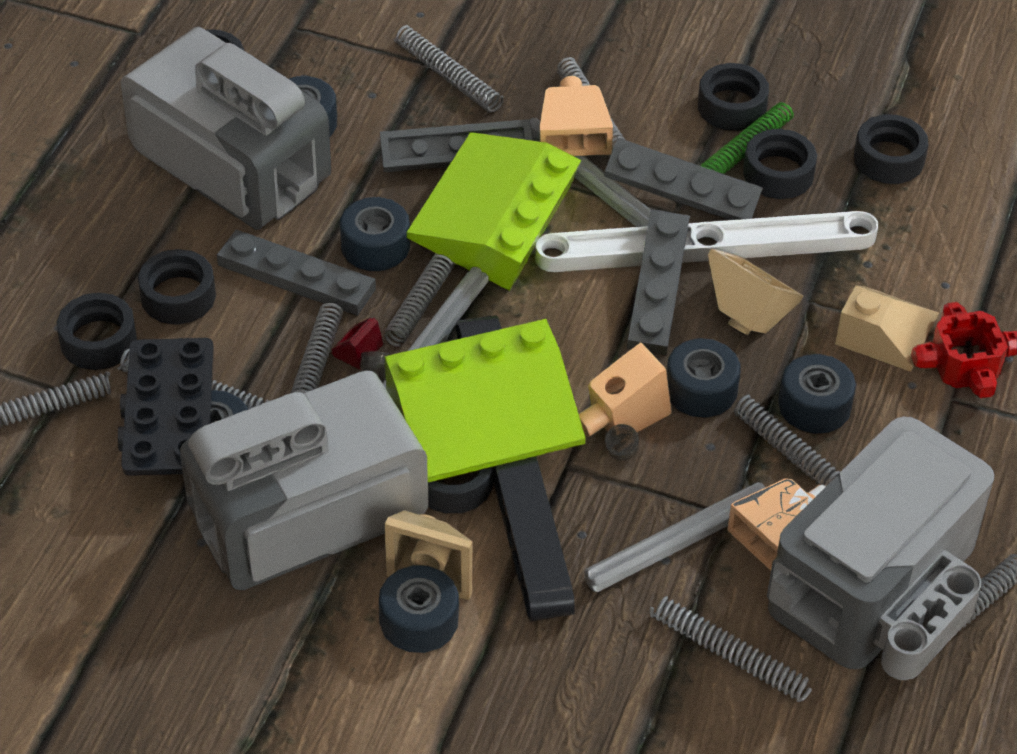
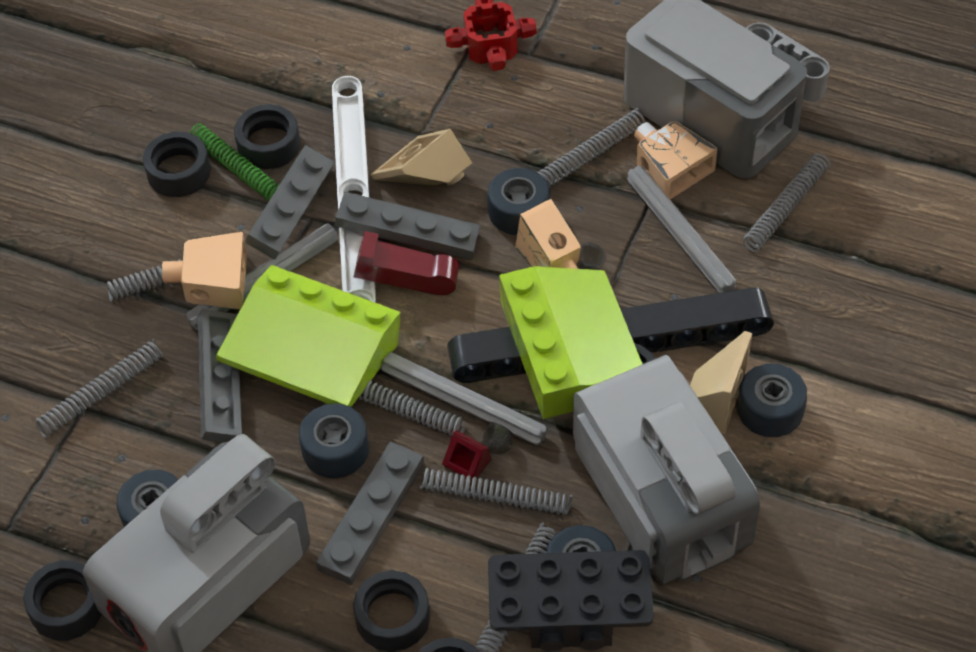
camera: 85 degrees left, 5 degrees up
(596, 273) = (405, 267): none -> dark red leg
(816, 393) = (536, 128): black wheel -> none
(883, 326) = (455, 86): tan slope -> none
(891, 168) = (256, 43): black tyre -> none

